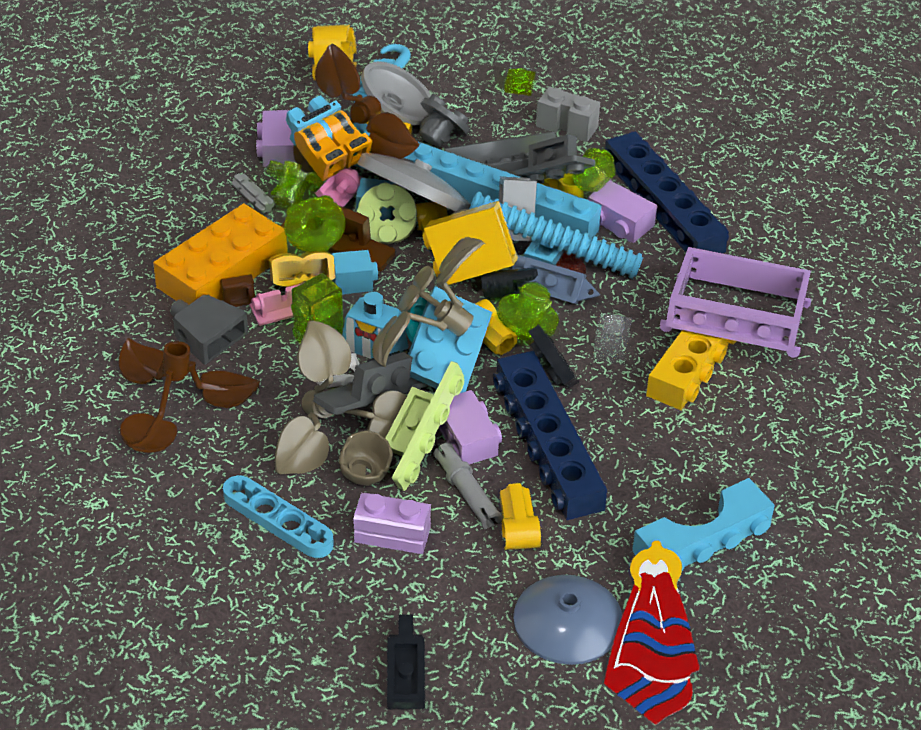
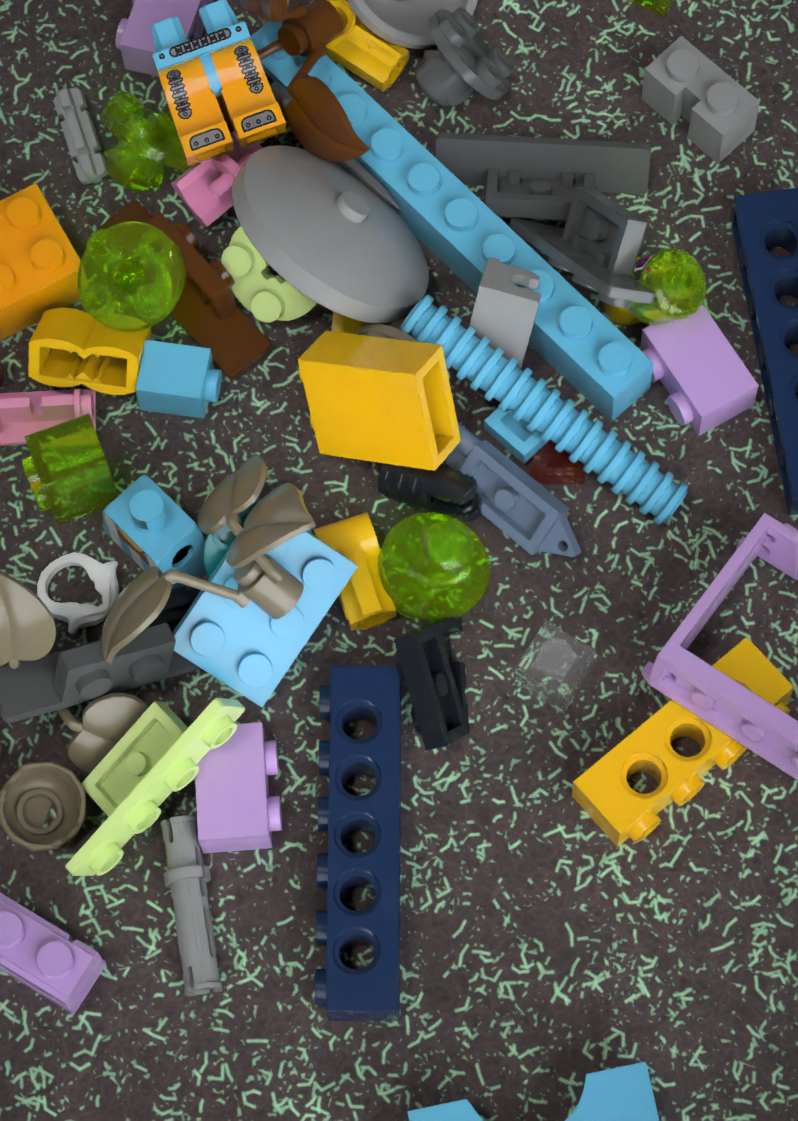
camera: 25 degrees right, 25 degrees up
(519, 524) = (241, 1014): yellow piece -> none

